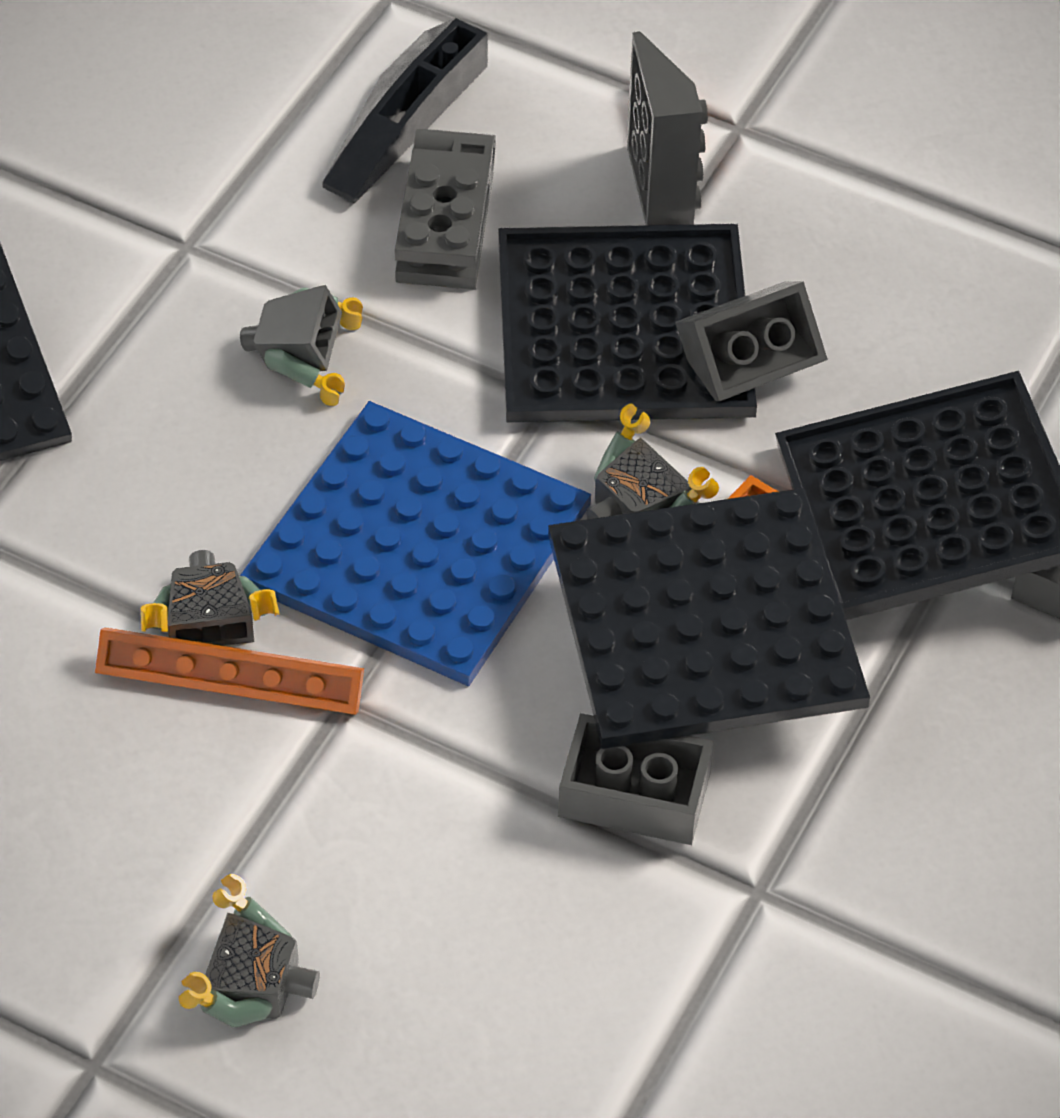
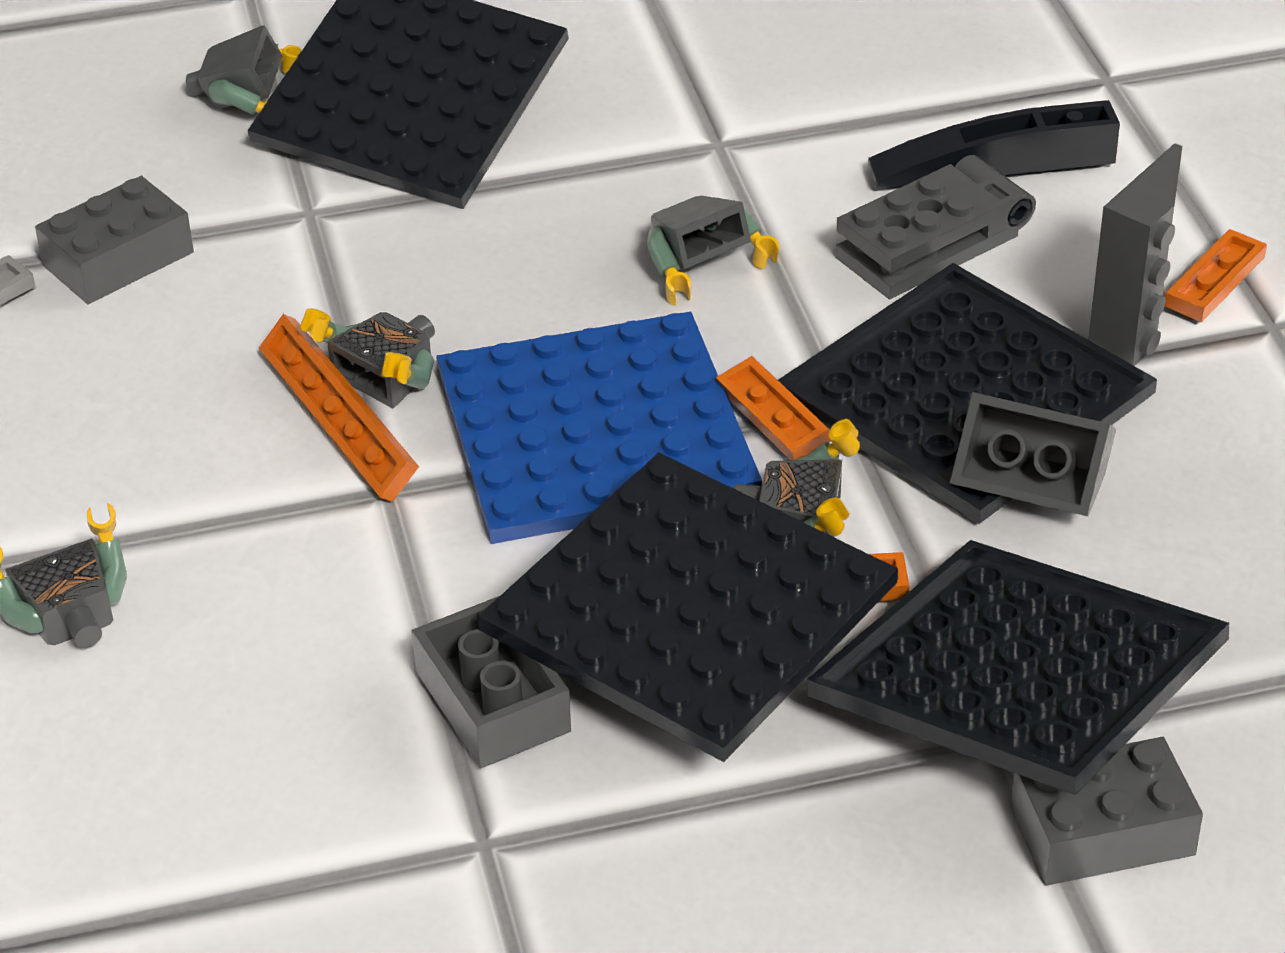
camera: 50 degrees right, 10 degrees down
(528, 434) = (773, 409): none -> orange plate

